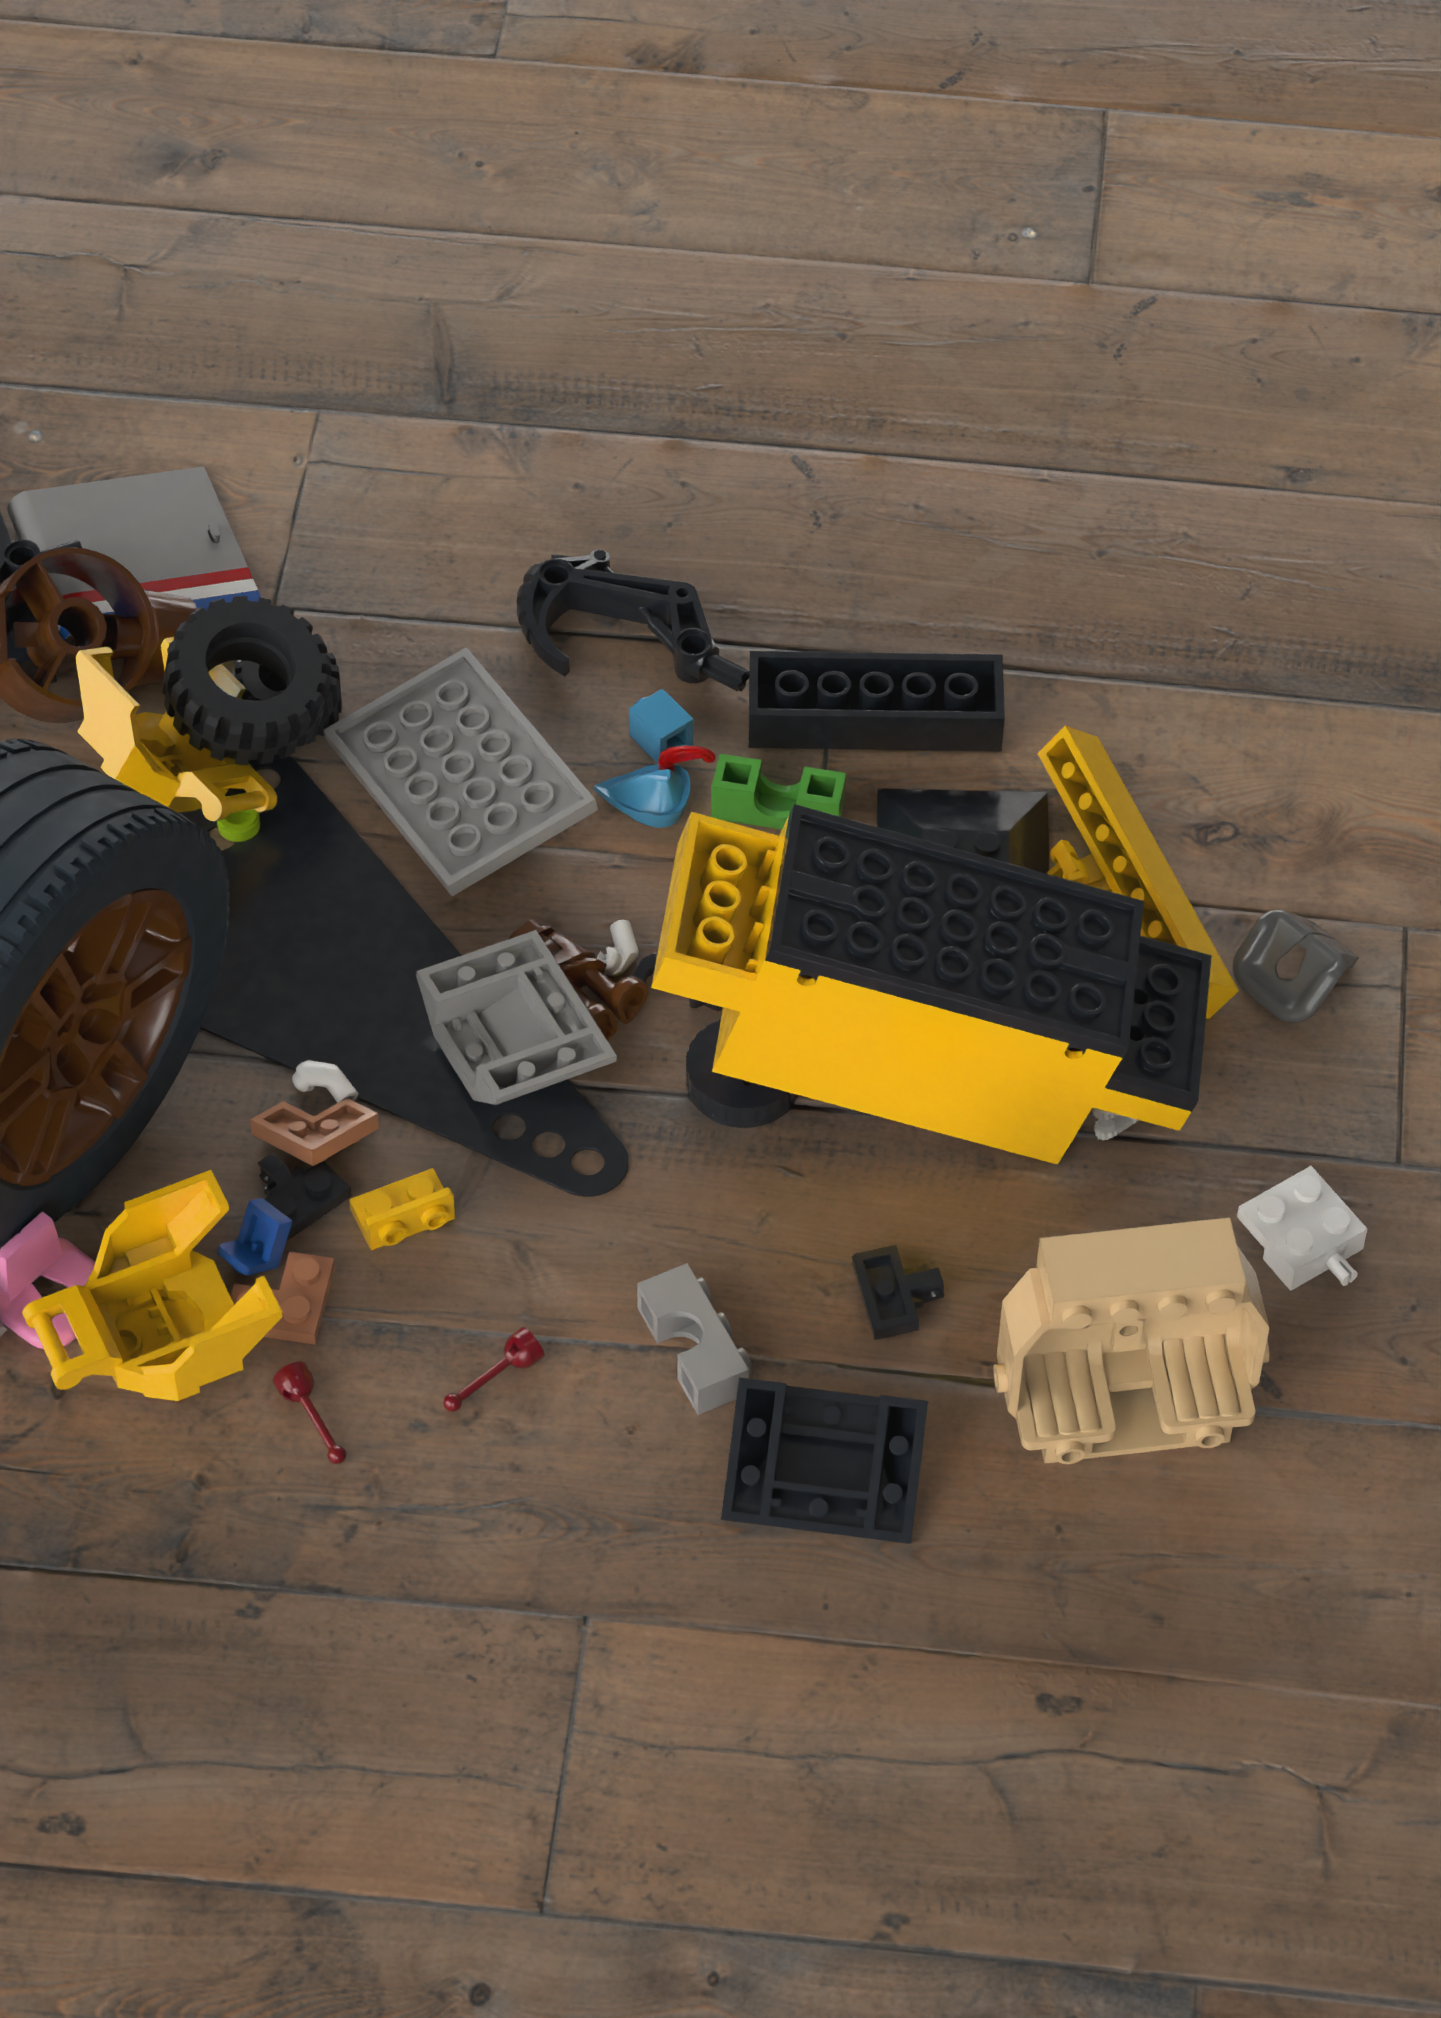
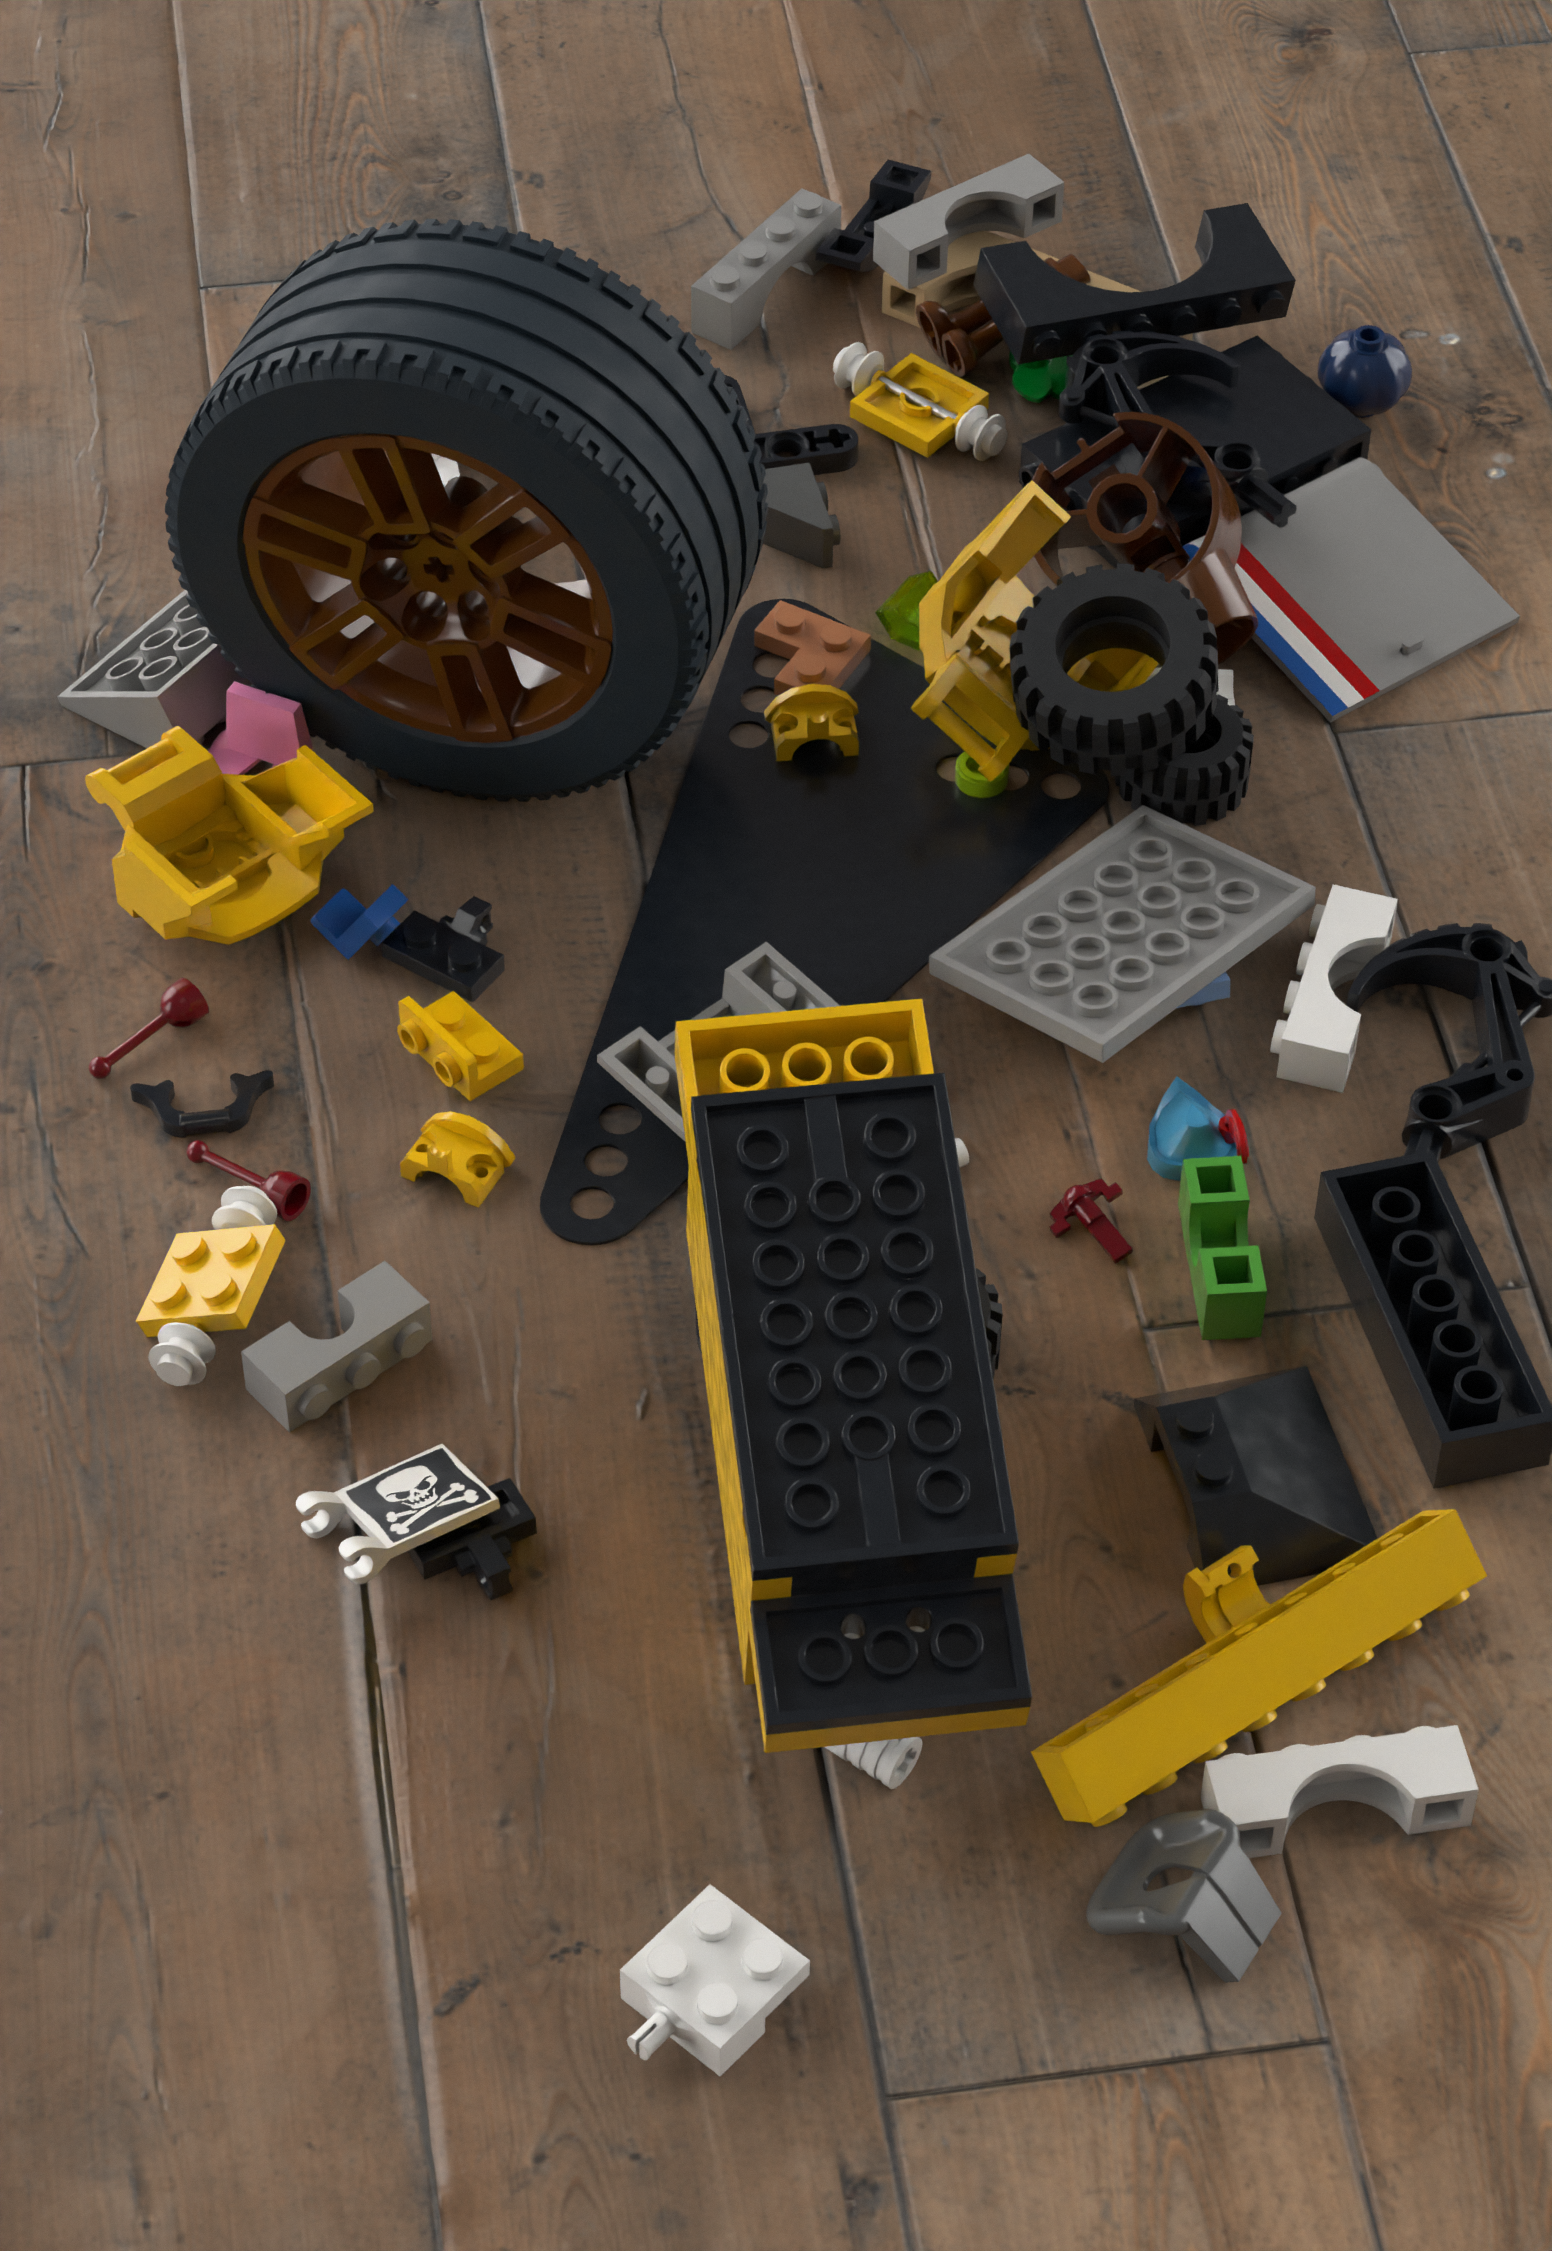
camera: 75 degrees right, 5 degrees down
(300, 1297) = (293, 986): nougat plate -> none
(315, 1136) = (529, 934): nougat plate -> none
(322, 1074) = (626, 933): white arm -> none
(419, 1407) = (183, 1124): none -> black helmet
(517, 1232) = (462, 1152): none -> yellow piece
(587, 693) = (1321, 1030): none -> white arch
(605, 1407) = (210, 1284): none -> yellow plate
(660, 724) = (1295, 1115): dark azure brick -> none
(824, 1461) = (187, 1503): black slope -> none
(858, 1318) = (399, 1509): none -> white flag
(1133, 1342) = (377, 1755): tan piece -> none
(1239, 825) = (1411, 1776): none -> white arch

